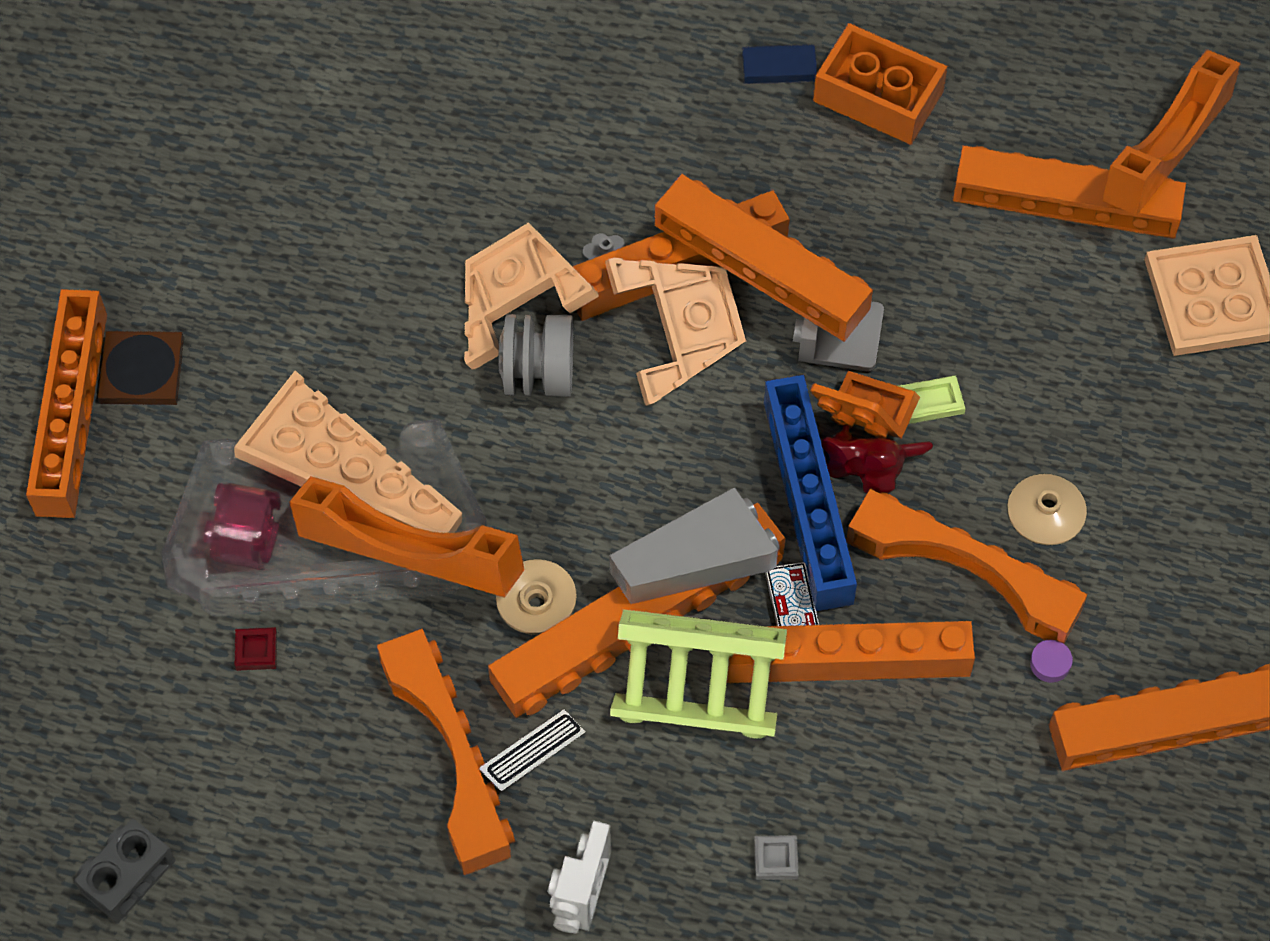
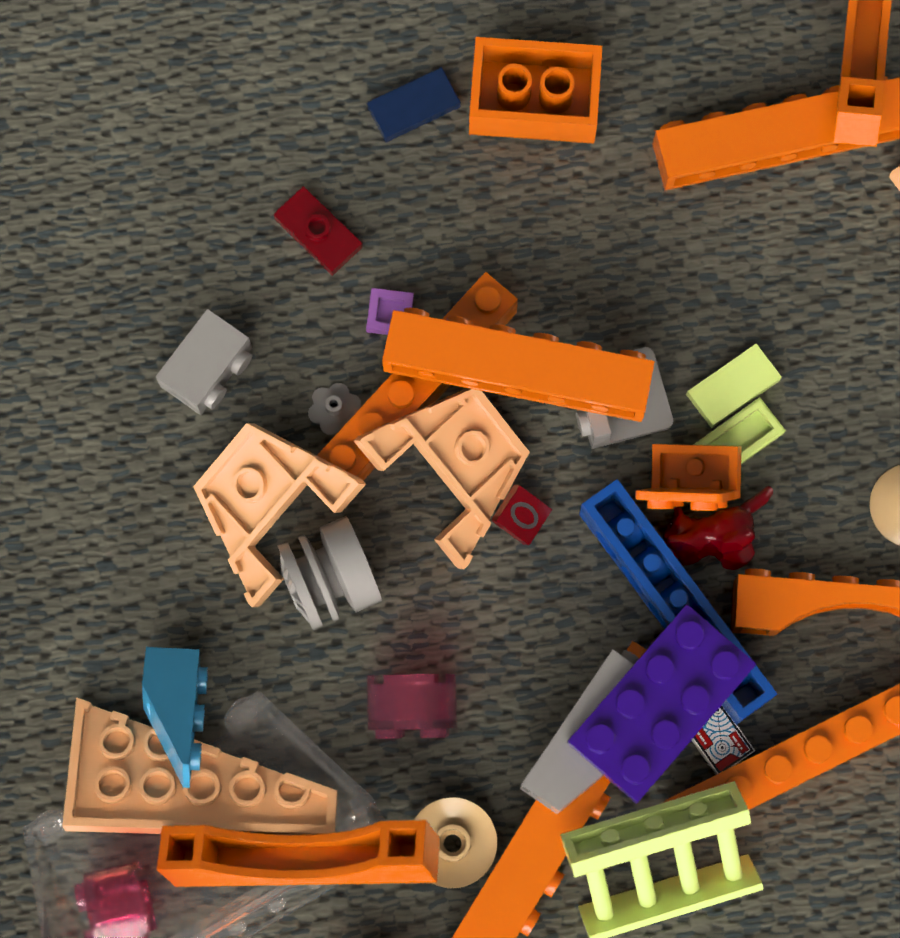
camera: 25 degrees left, 15 degrees up
(369, 395) = (170, 701): none -> dark azure slope
(520, 176) = (205, 363): none -> light grey brick
(555, 476) = (411, 704): none -> clear pink brick
(657, 122) = (317, 230): none -> dark red plate
(716, 383) = (521, 514): none -> dark red tile
(753, 539) = (661, 703): none -> dark purple plate
(939, 359) = (733, 385): none -> yellowish green tile

